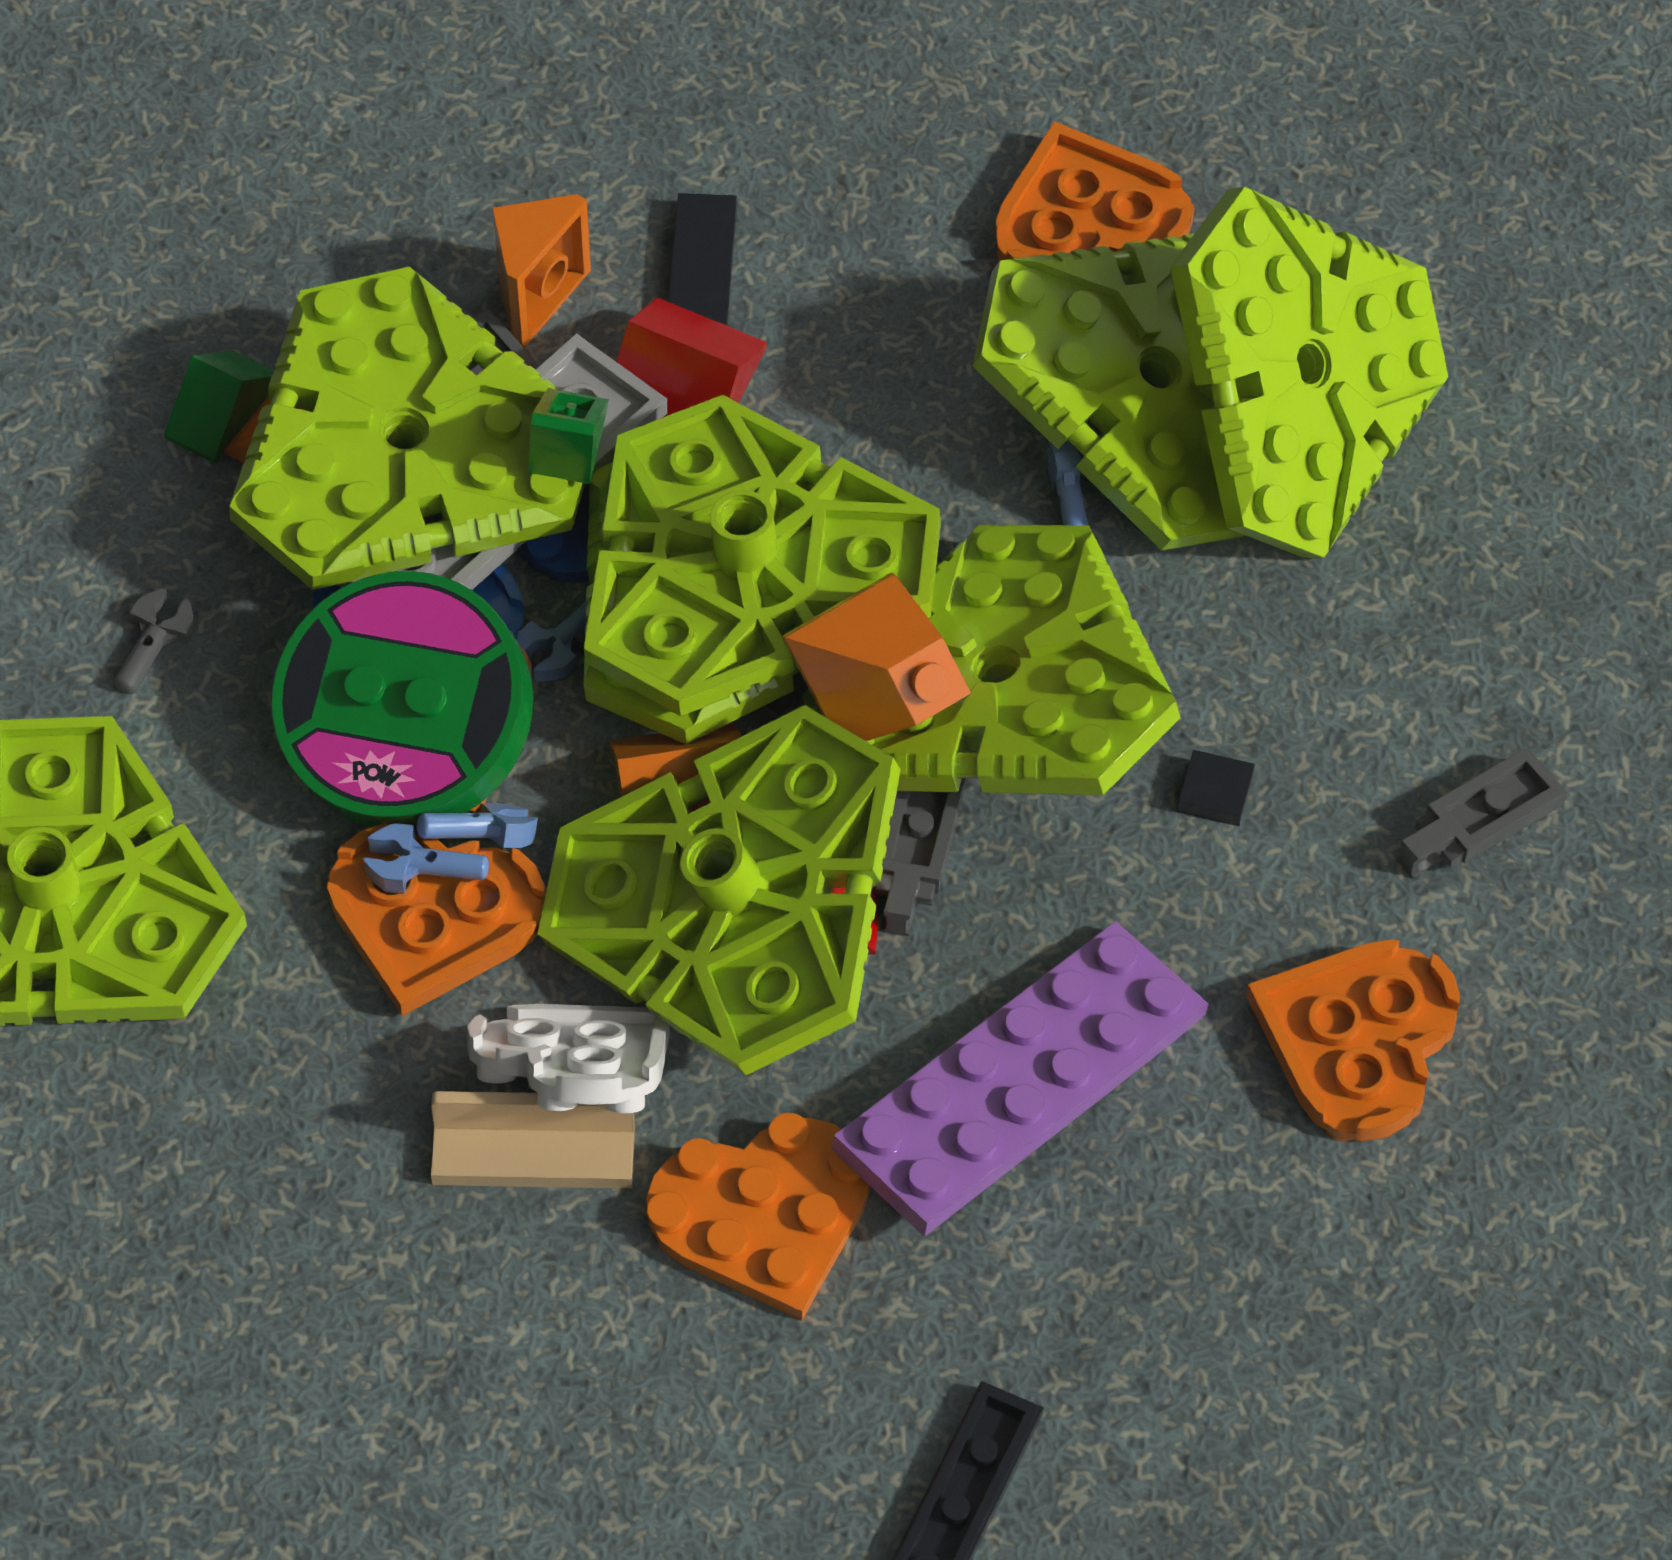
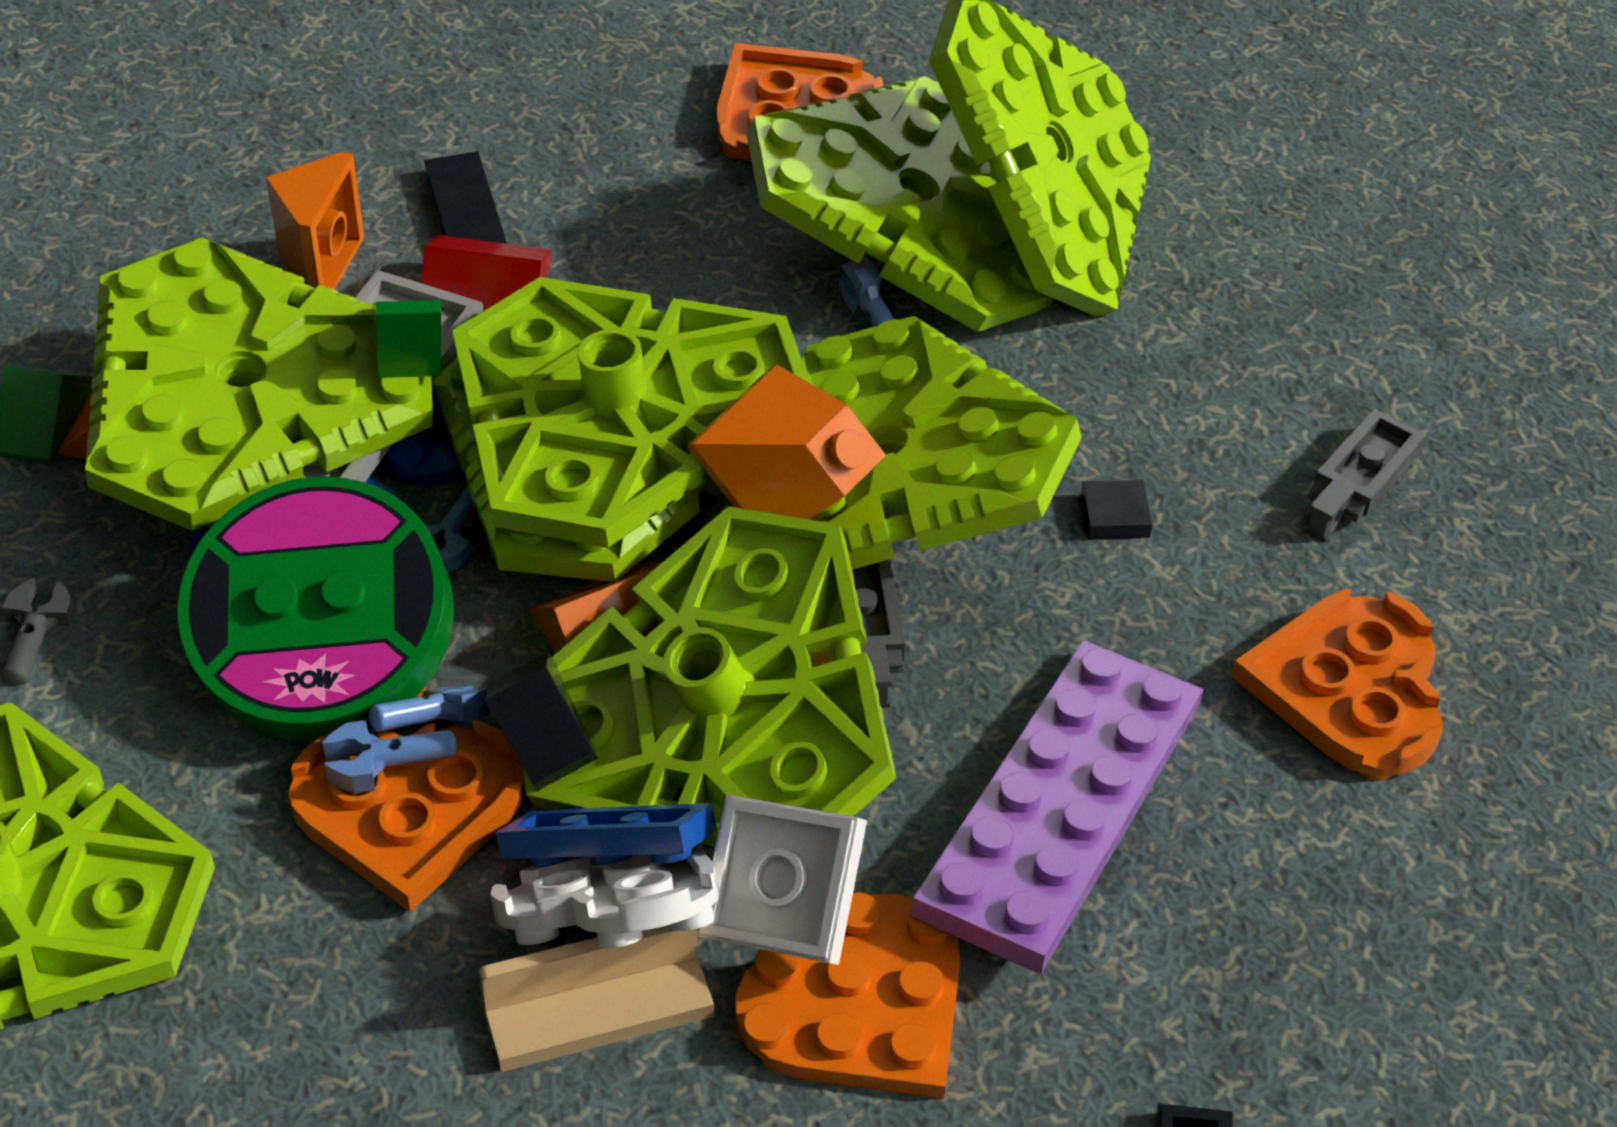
camera: 20 degrees left, 10 degrees down
(567, 867) = (540, 721): none -> black slope
(588, 996) = (607, 834): none -> blue plate
(721, 1086) = (784, 878): none -> white tile

